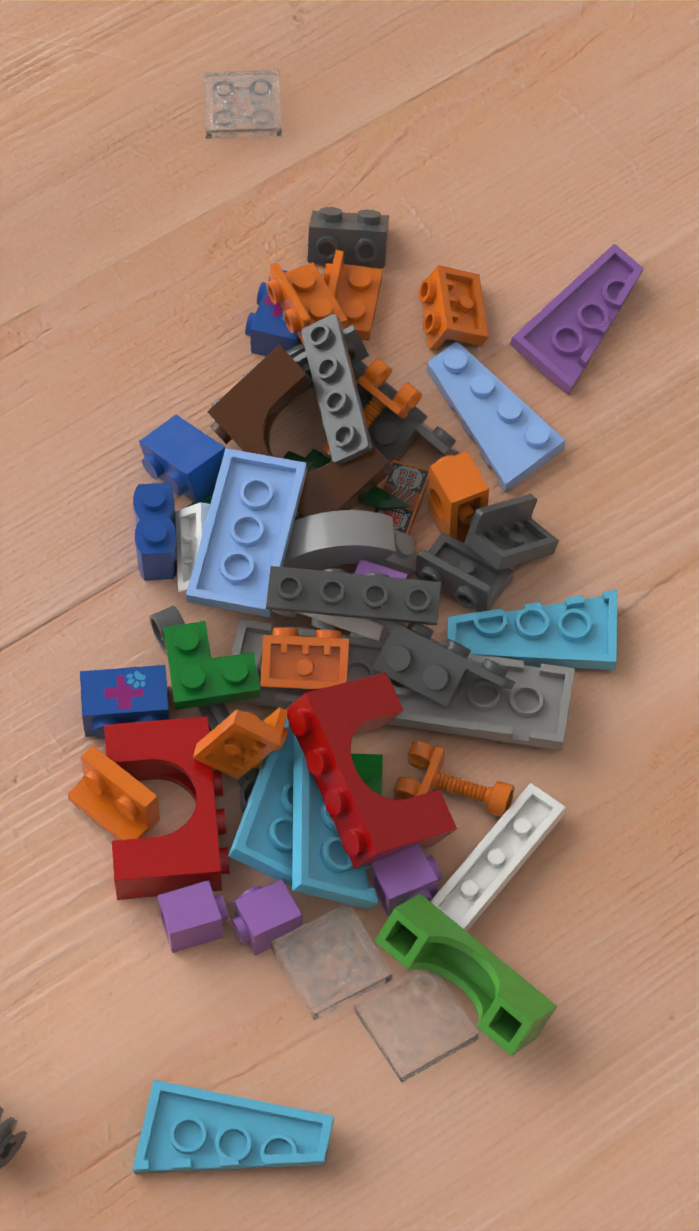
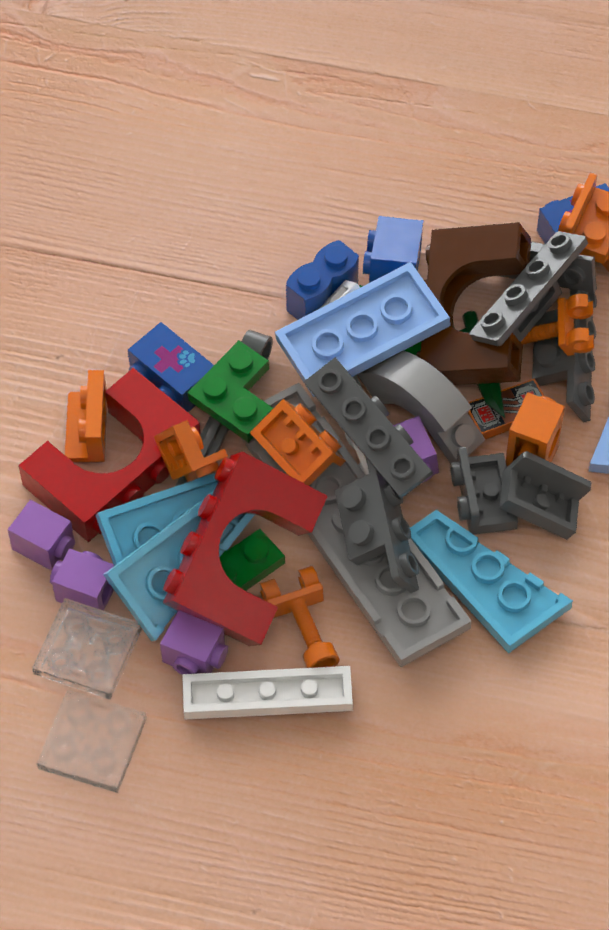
camera: 50 degrees right, 0 degrees up
(431, 941) = (152, 691): bright green arch -> none

